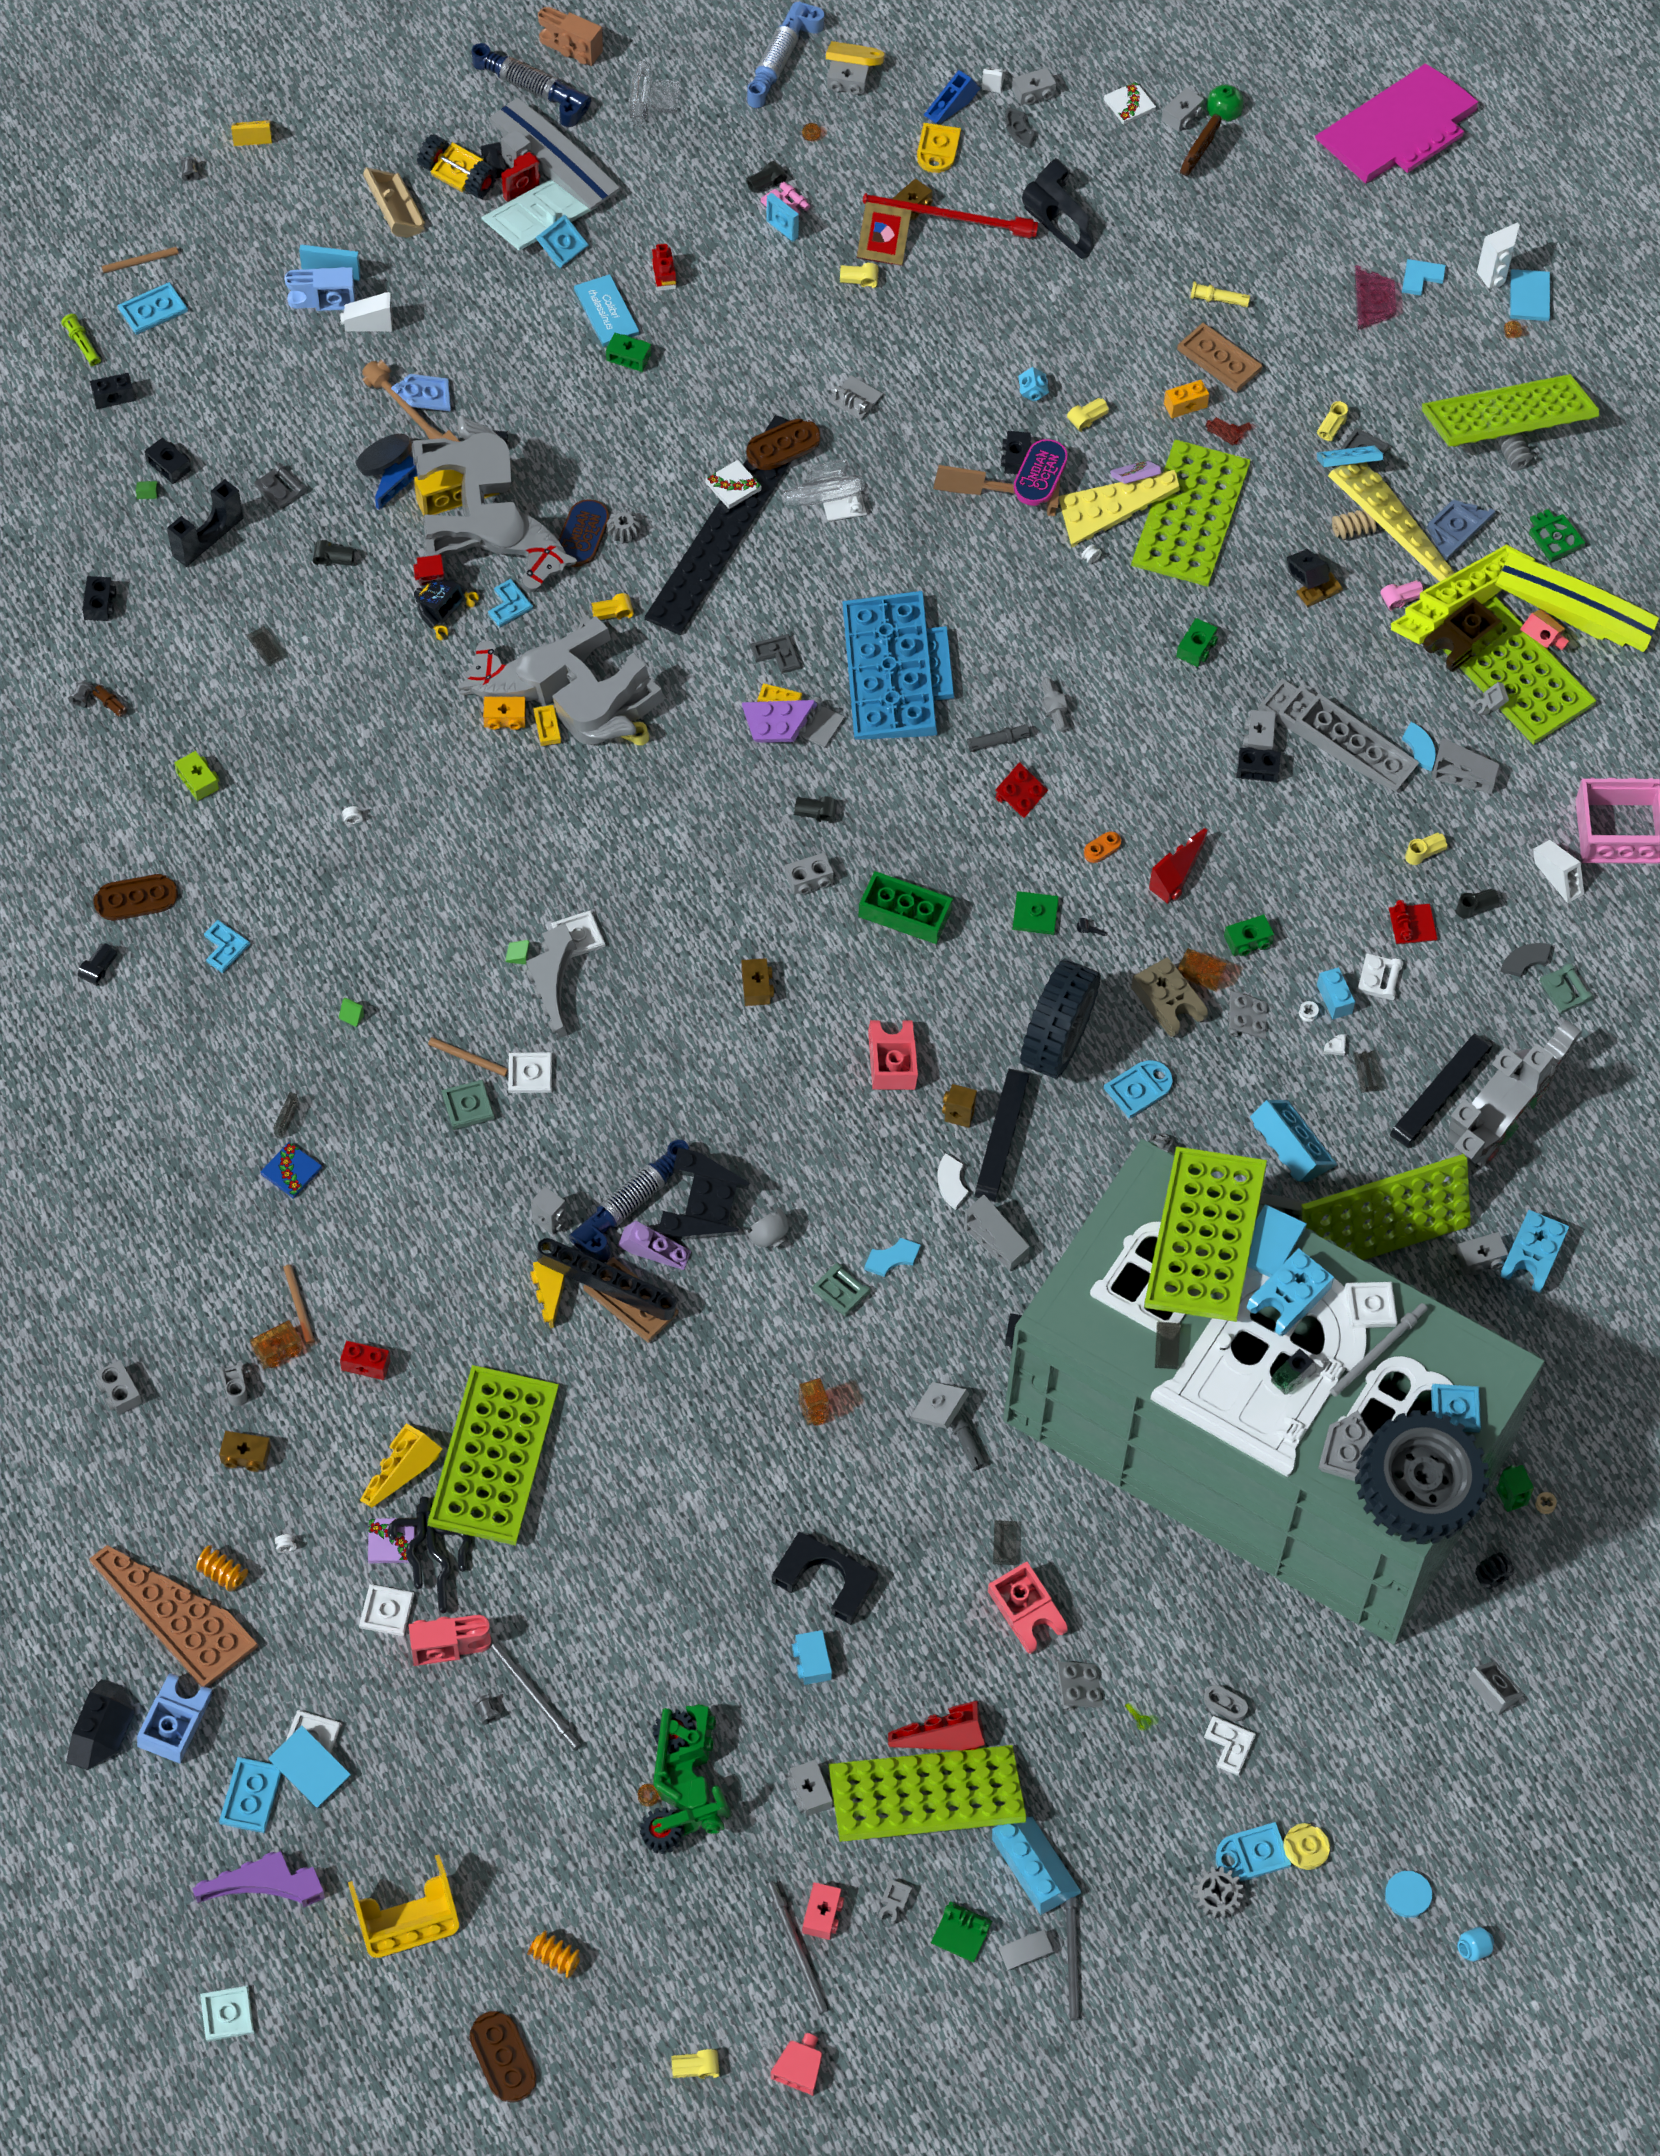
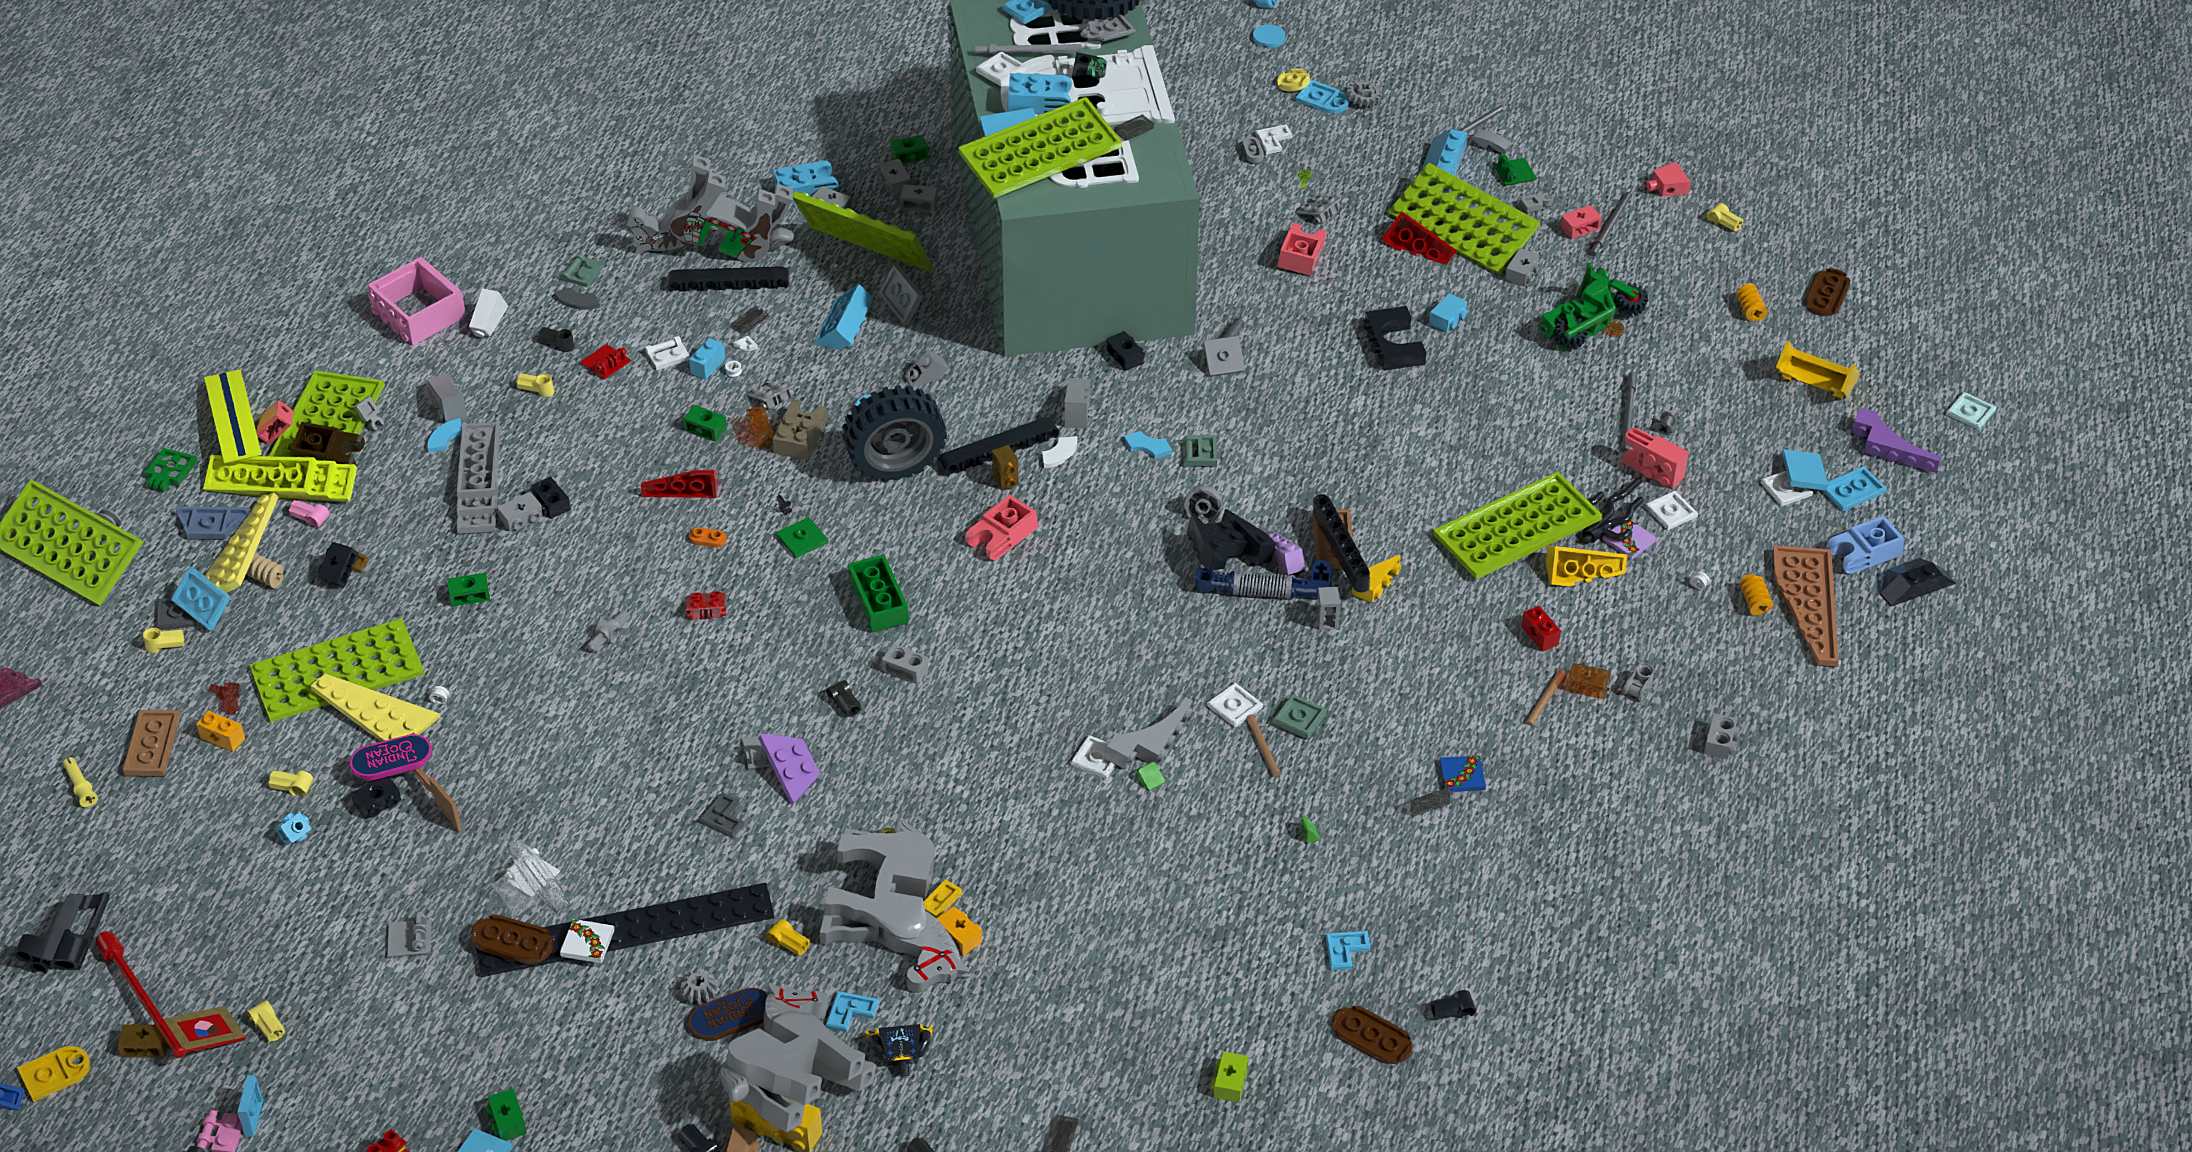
camera: 130 degrees left, 15 degrees down
(235, 1445) = (1673, 642): pearl gold brick -> none
(352, 815) = (1152, 954): white bush -> none
(428, 569) = (887, 1062): red brick -> none
(753, 971) = (1026, 633): pearl gold brick -> none
(773, 693) = (765, 783): yellow plate -> none
(813, 1402) = (1295, 403): clear orange brick -> none
(895, 666) = (663, 739): dark azure slope -> none
(1004, 1542) = (1271, 286): clear smoke tile -> none
(1006, 735) = (664, 640): dark grey pin -> none
(1135, 472) = (331, 712): lavender tile -> none

